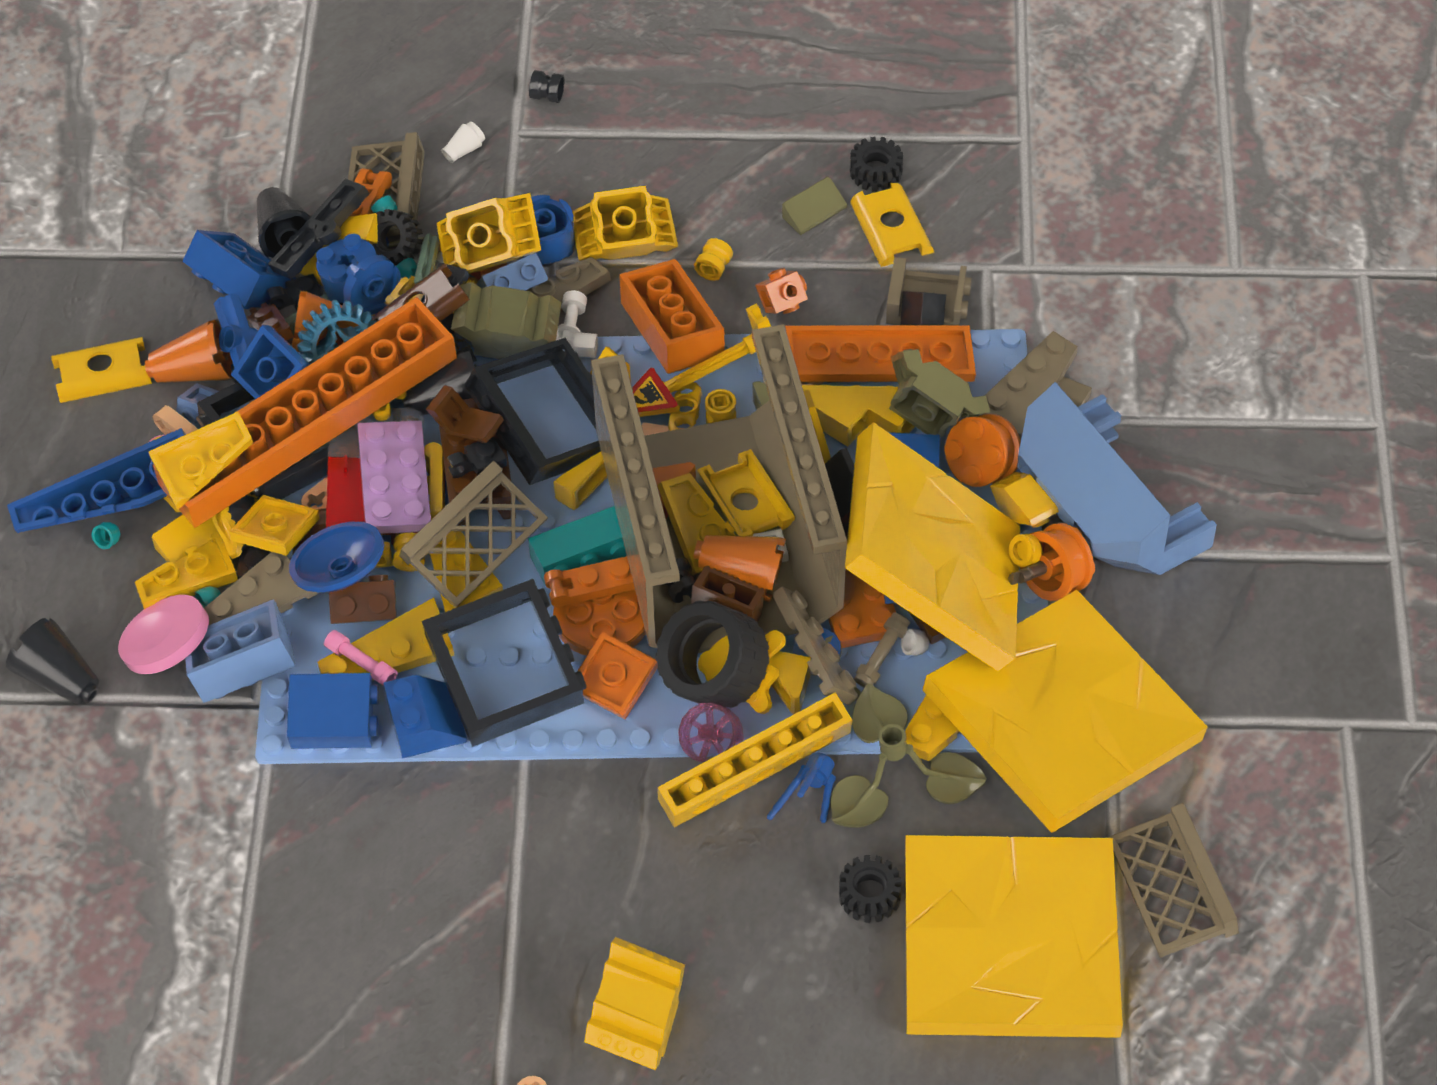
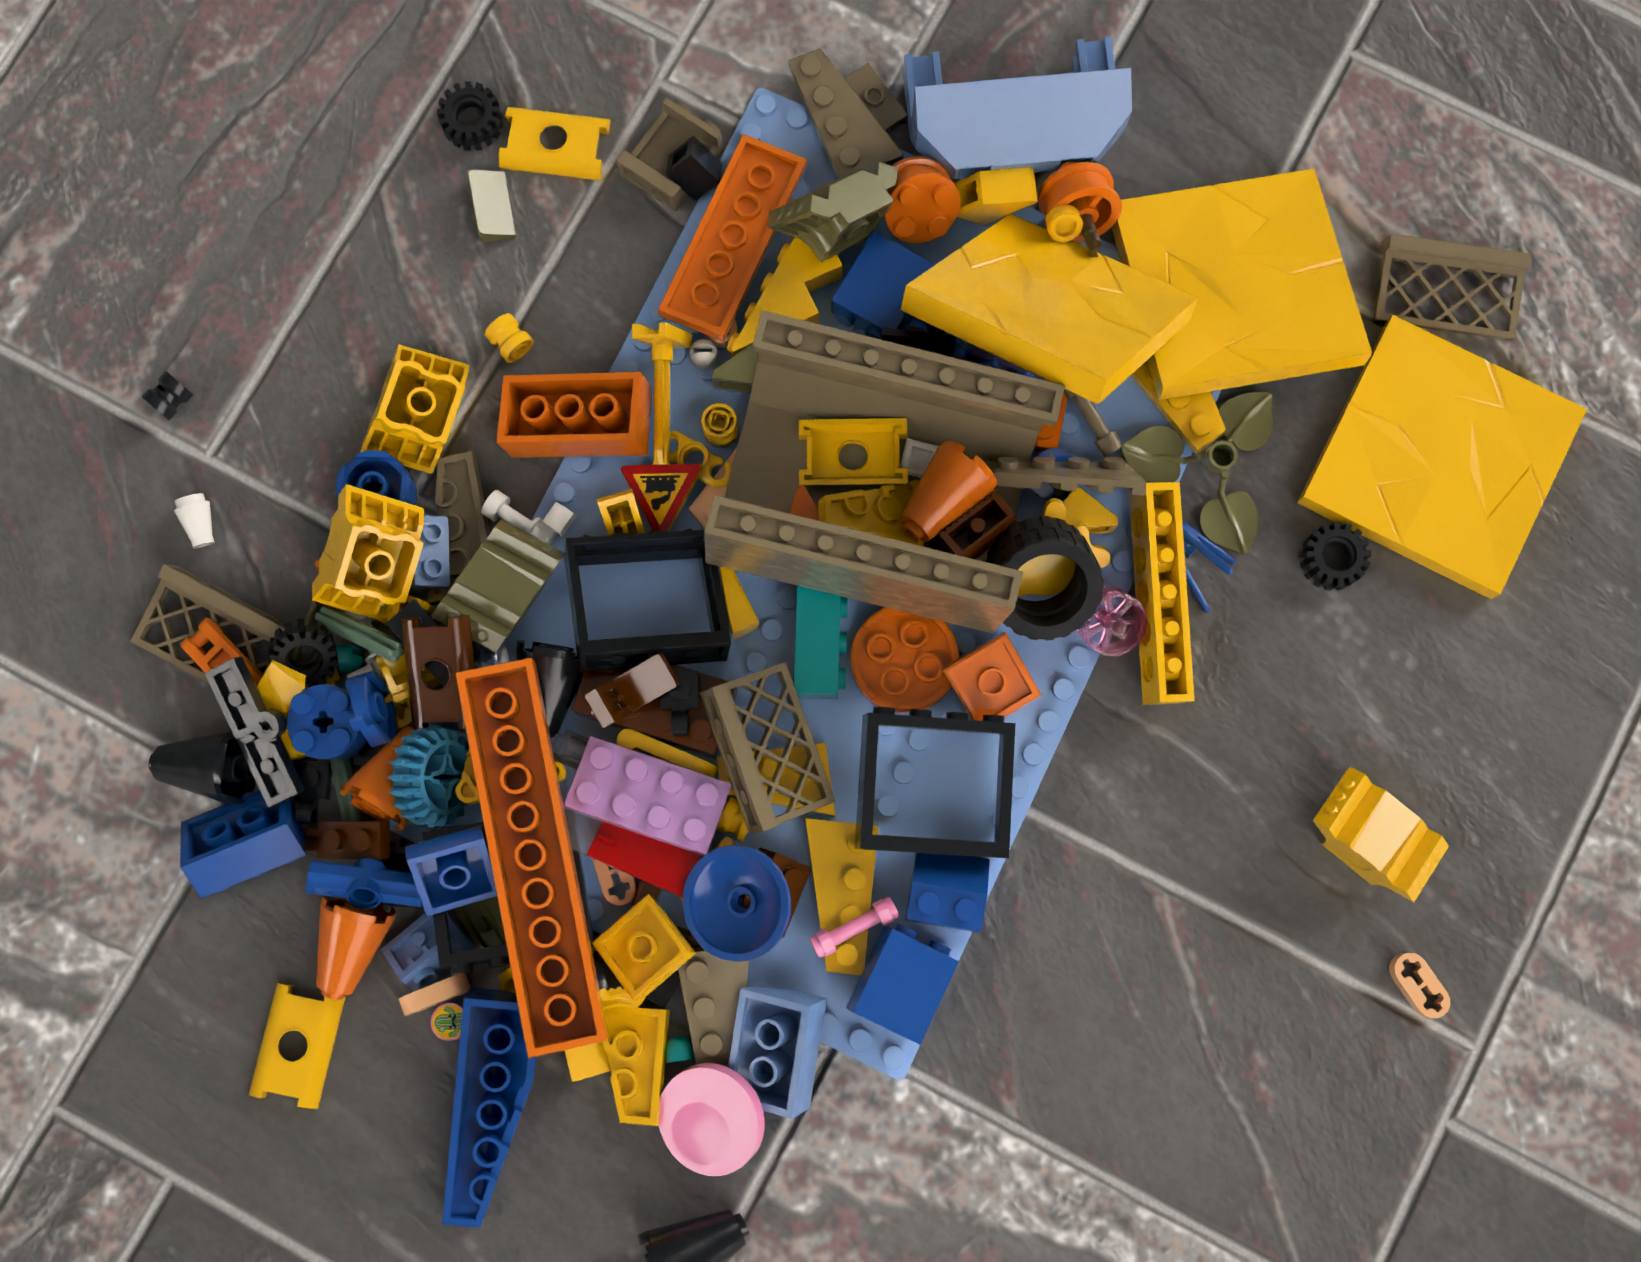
camera: 65 degrees left, 25 degrees up
(103, 532) = (536, 1128): teal hinge -> none
(199, 456) = (553, 1004): yellow wing -> none
(384, 203) = (256, 645): teal hinge -> none
(589, 582) = (871, 652): orange plate -> none
(782, 291) = (594, 291): orange brick -> none

